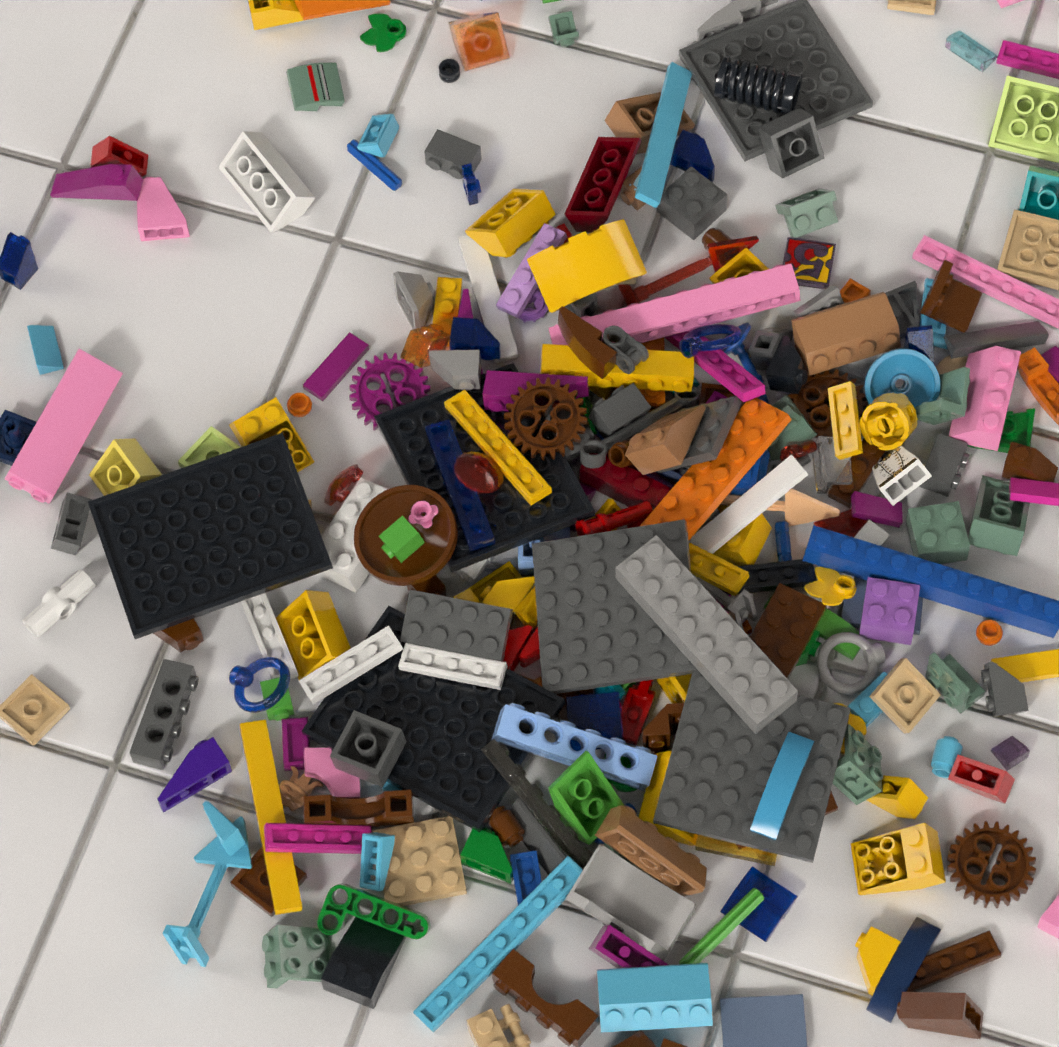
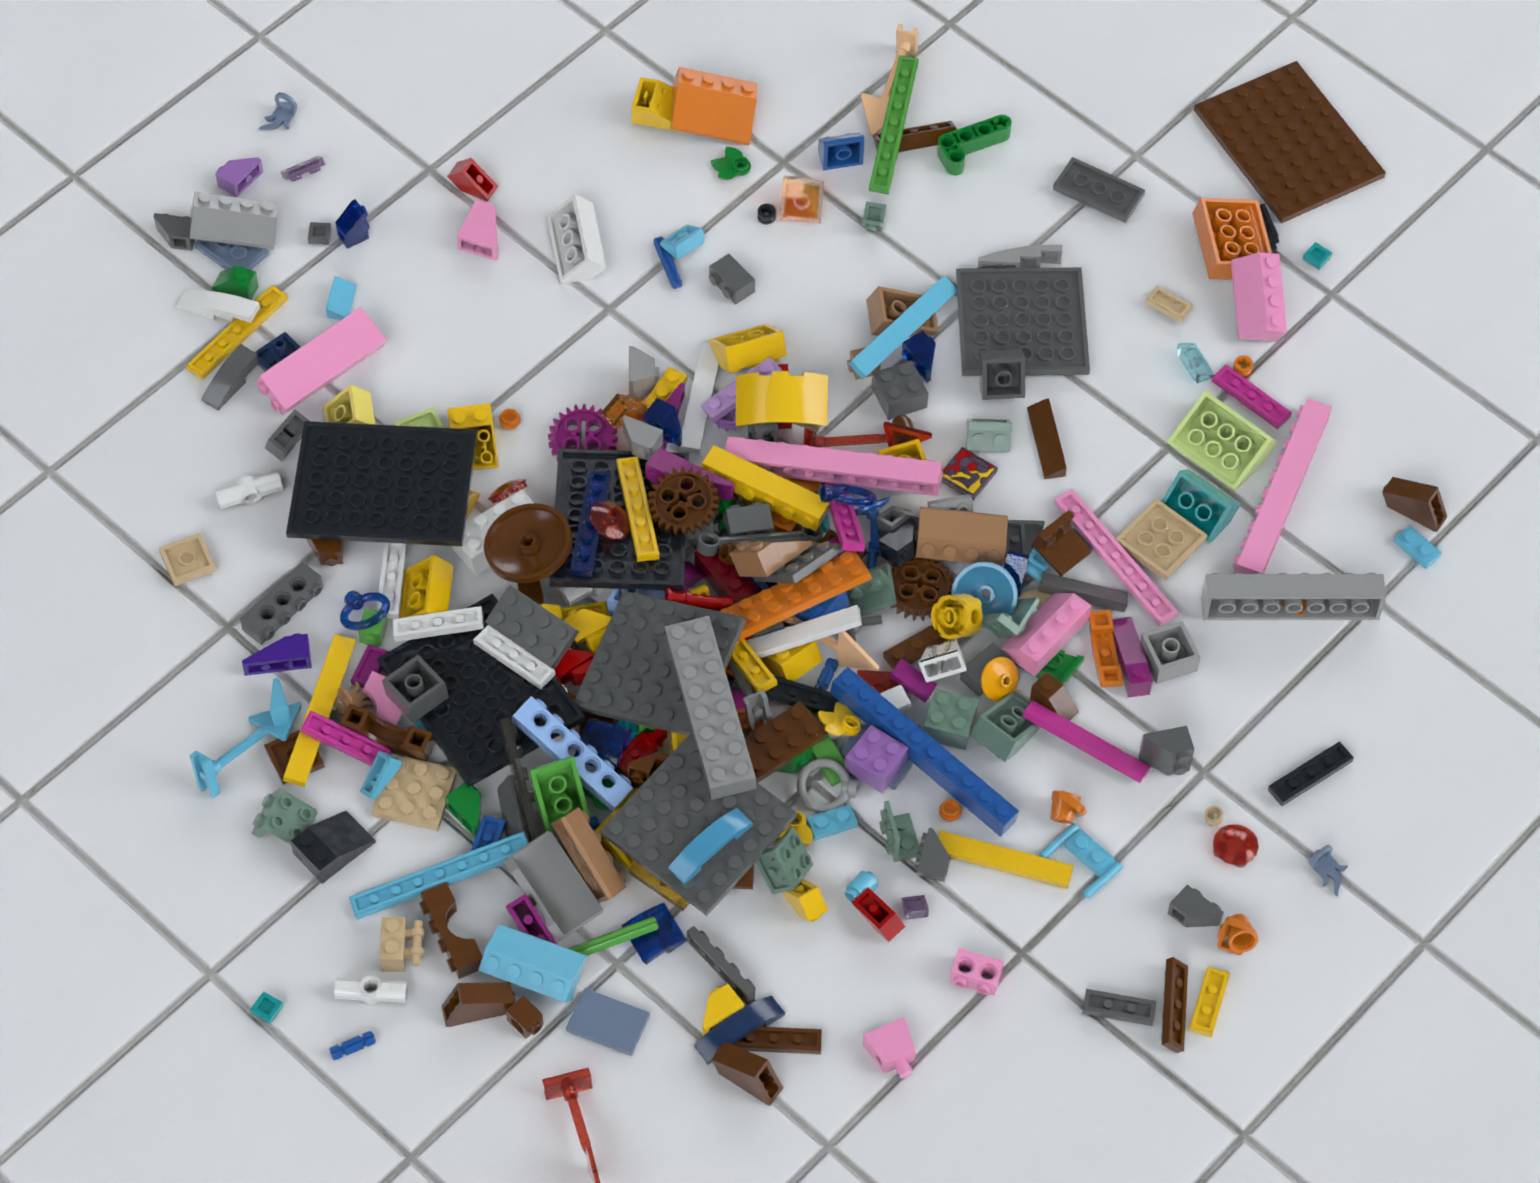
camera: 20 degrees right, 5 degrees down
(99, 182) = (446, 191): magenta slope -> none
(315, 86) = (654, 184): sand green slope -> none
(336, 366) = (554, 402): magenta tile -> none
(377, 915) = (359, 815): green beam -> none
(400, 540) = (519, 543): bright green brick -> none
(418, 509) = (547, 531): bright pink plate -> none
(470, 184) = (733, 308): clear blue plate -> none
(506, 826) = (492, 793): reddish brown brick -> none
(586, 343) = (746, 458): reddish brown slope -> none
(601, 182) = (834, 343): dark red slope -> none
(628, 349) = (772, 476): dark grey piece -> none
(739, 74) = (990, 323): black piece -> none
(798, 450) = (874, 609): clear red arm -> none
(828, 468) = (898, 630): clear panel -> none
(840, 904) = (716, 959): none -> dark grey plate
(845, 420) = (922, 601): yellow plate -> none
(853, 291) = (990, 507): orange tile -> none
(869, 193) = (1047, 439): none -> reddish brown slope
(898, 861) = (780, 948): yellow slope -> none
(905, 695) = (853, 827): tan plate -> none
(965, 469) = (993, 676): none -> light orange dish
(967, 854) = (836, 967): reddish brown gear -> none
(1023, 29) = (1244, 372): none -> orange bush

